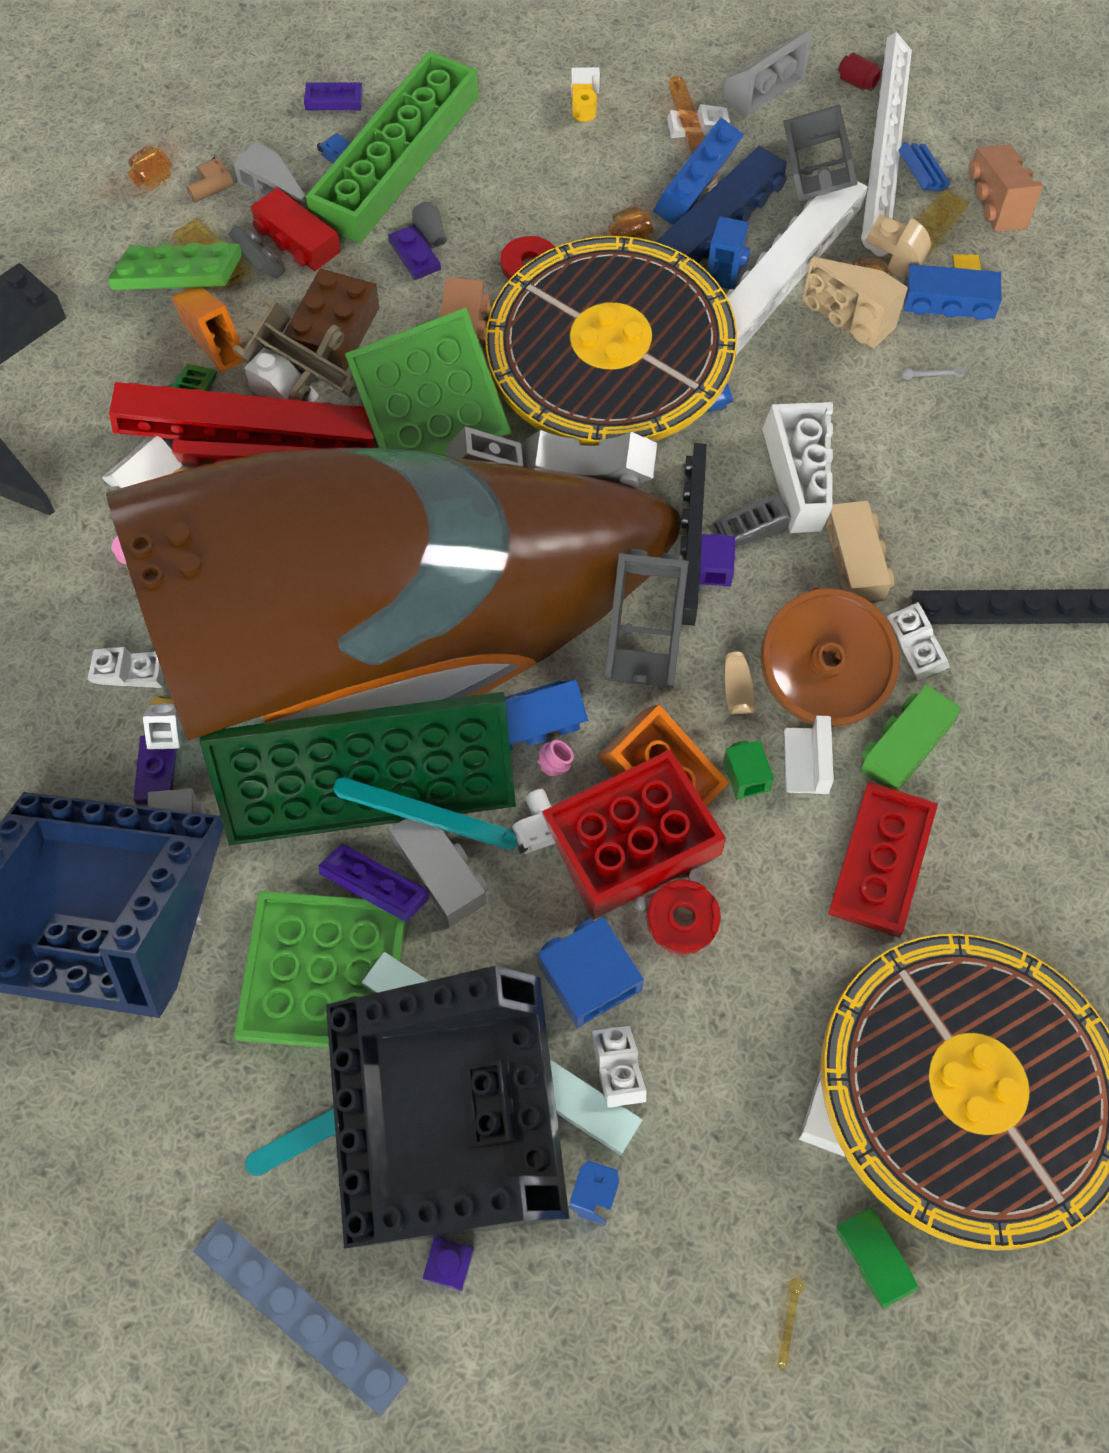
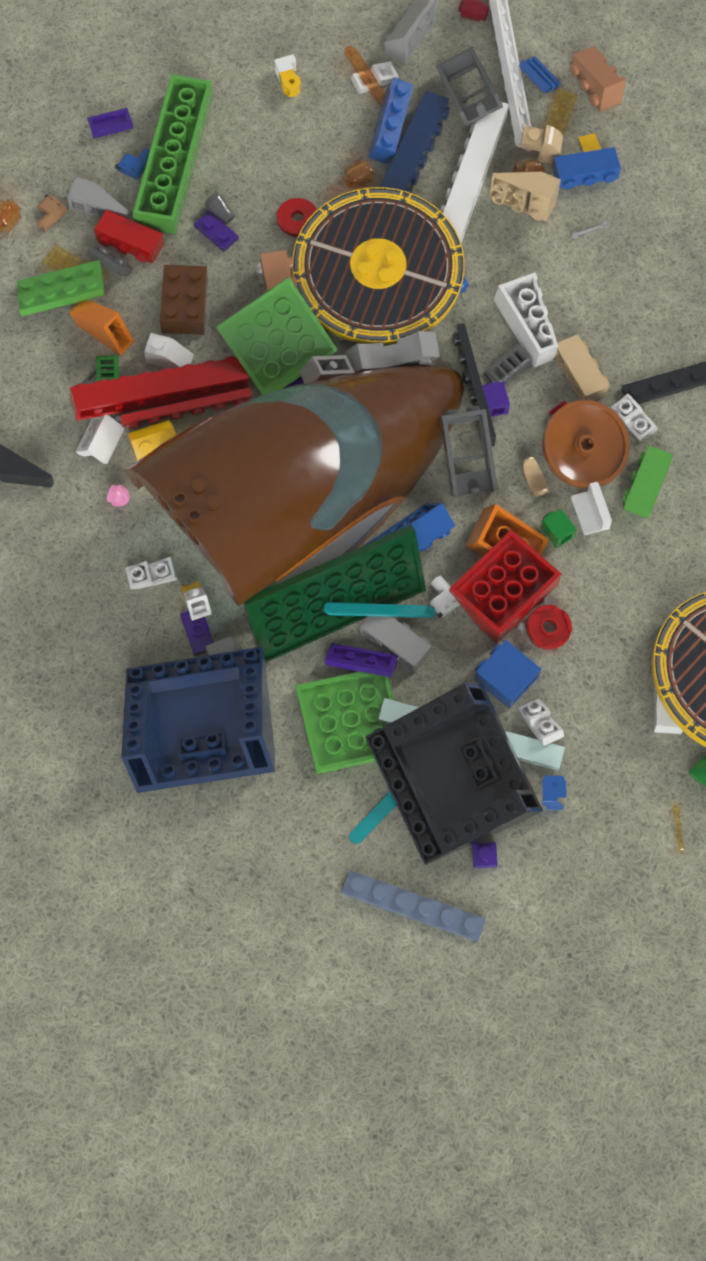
camera: 20 degrees left, 5 degrees up
(269, 335) = (179, 333): dark tan piece -> none
(555, 758) = (440, 554): bright pink plate -> none
(728, 251) = (432, 179): blue brick -> none
(883, 859) = (653, 559): red plate -> none

